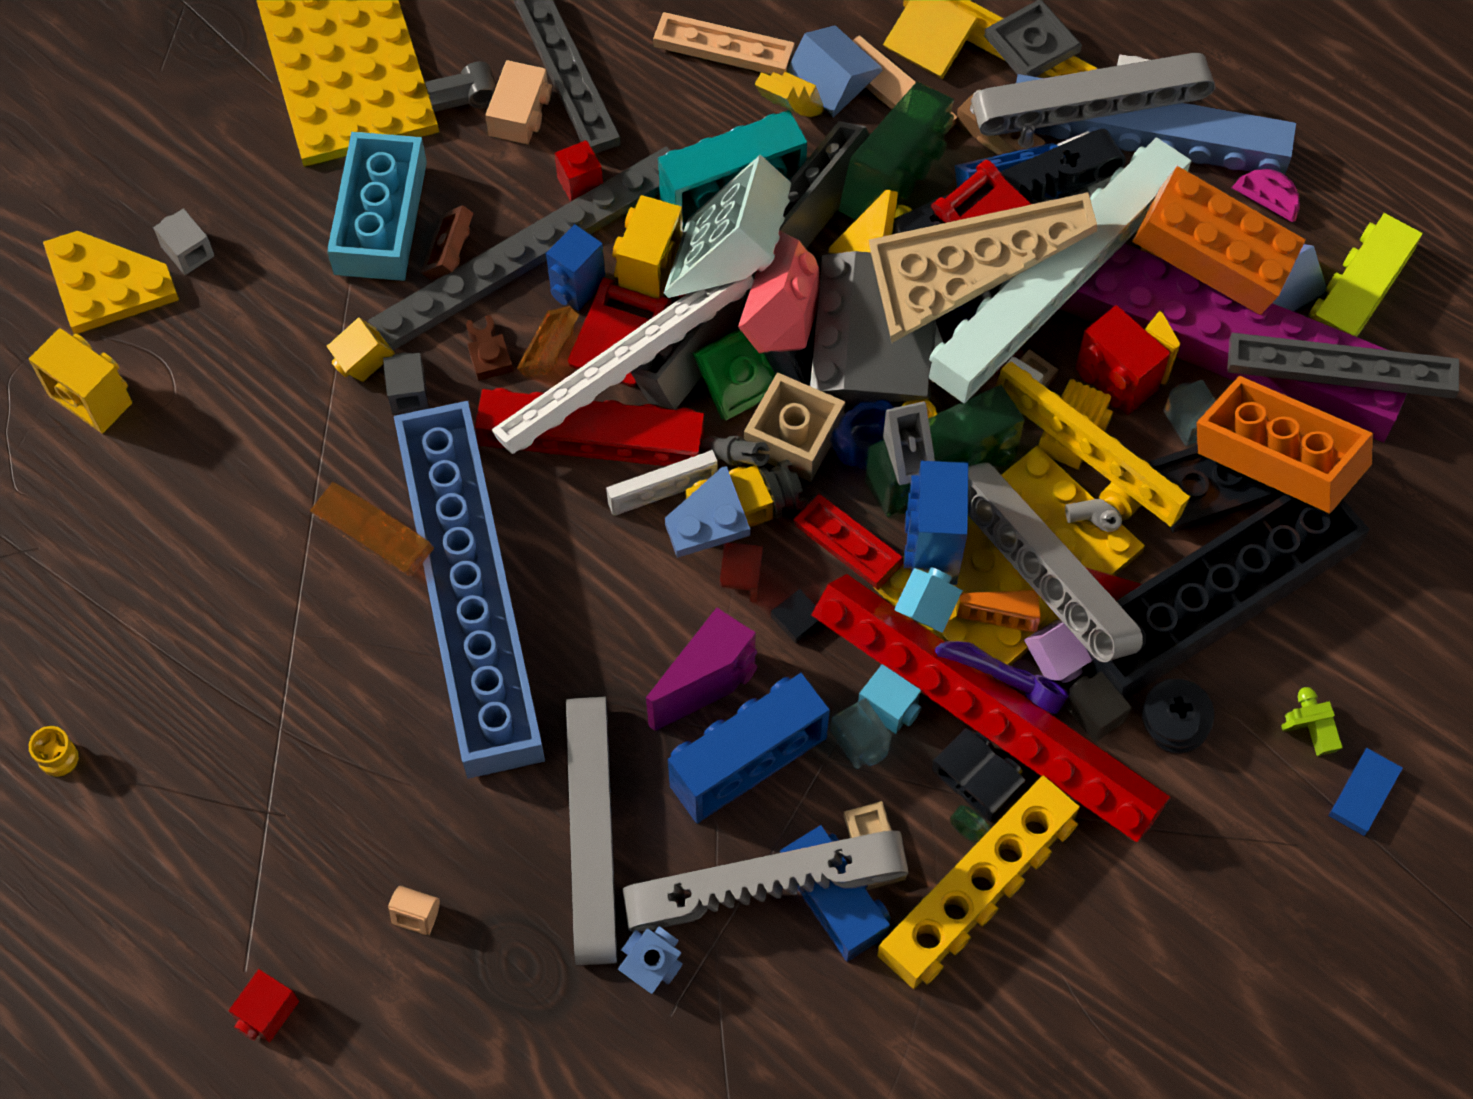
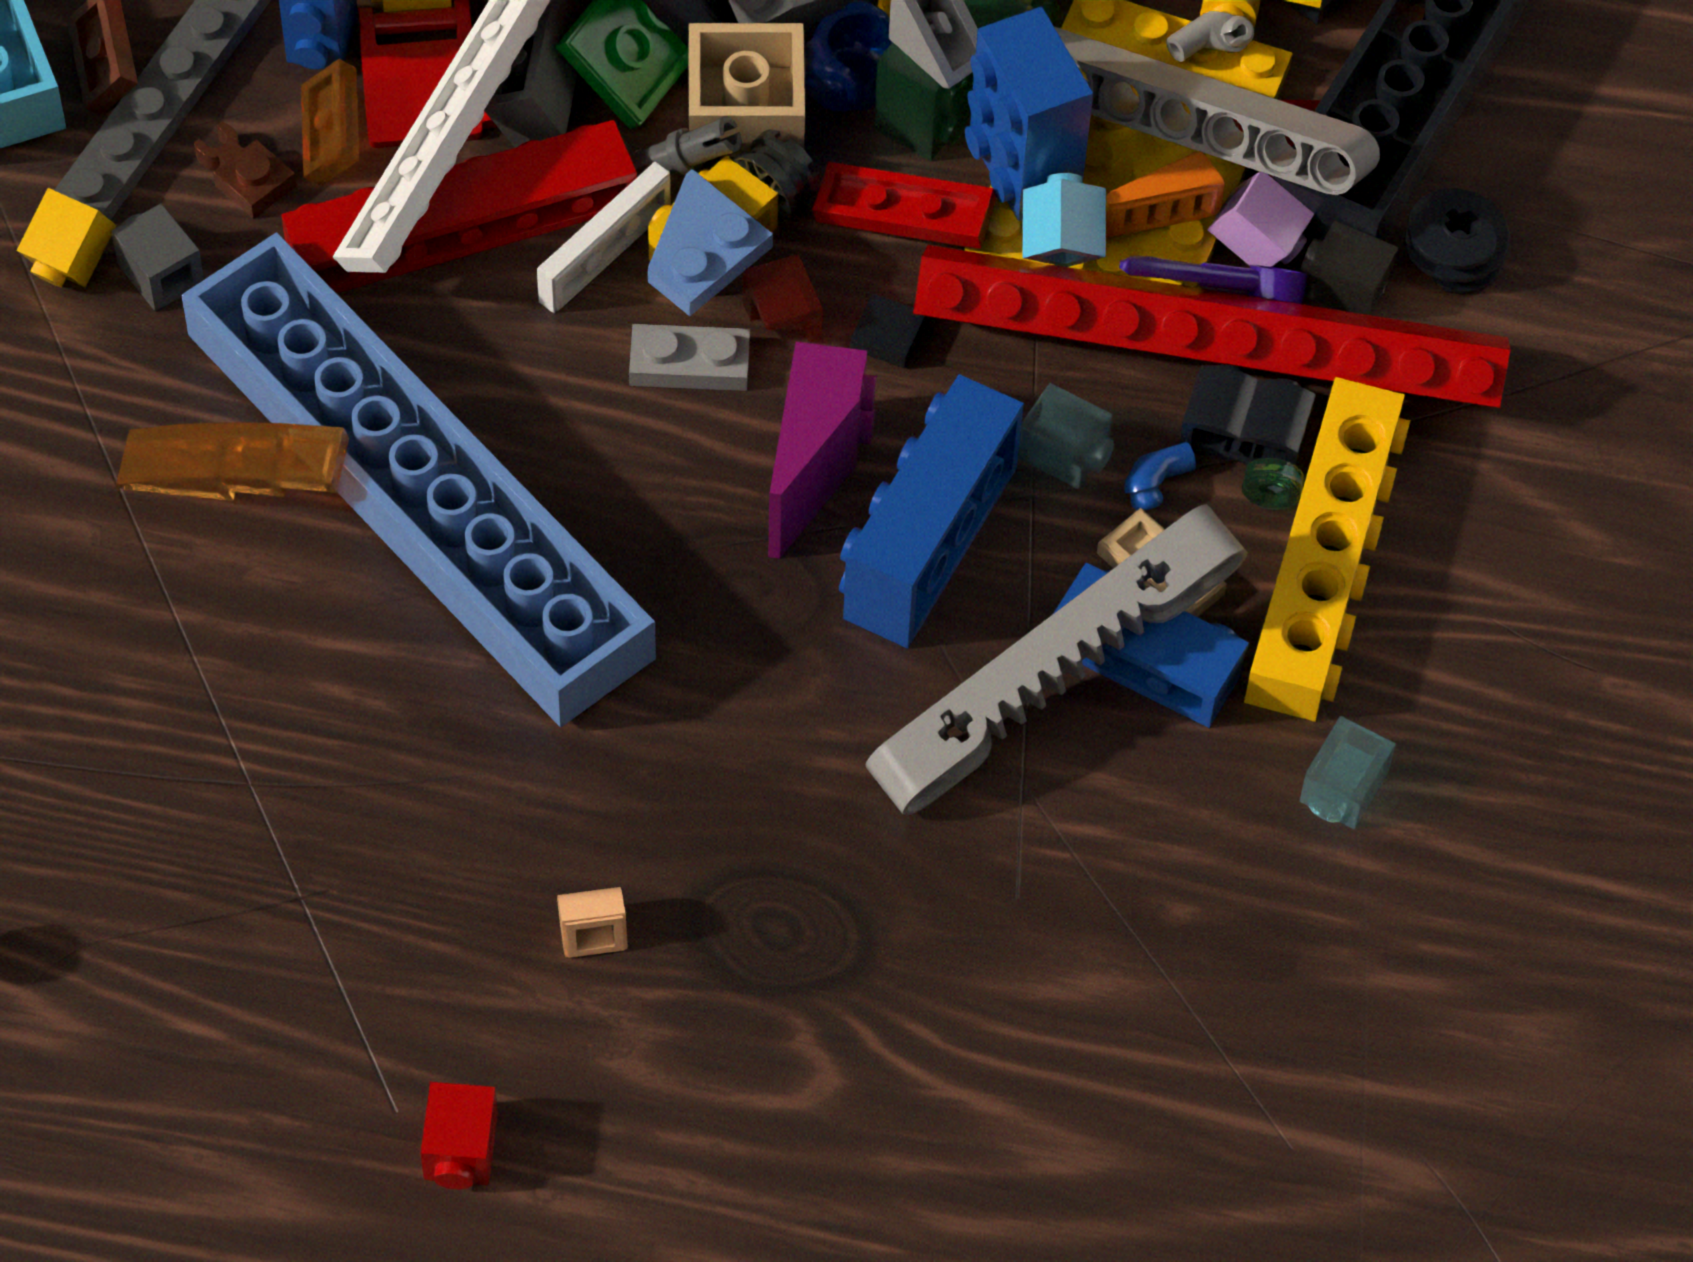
camera: 30 degrees left, 5 degrees down
(591, 832) = (776, 713): light grey beam -> none
(649, 975) = (957, 830): medium blue brick -> none
(672, 579) = (689, 357): none -> light grey plate
(892, 698) = (1081, 368): medium azure brick -> none
(901, 780) = (1151, 471): none -> blue arm
(906, 1037) = (1346, 773): none -> clear light blue brick
(1318, 720) = (1634, 171): lime piece -> none

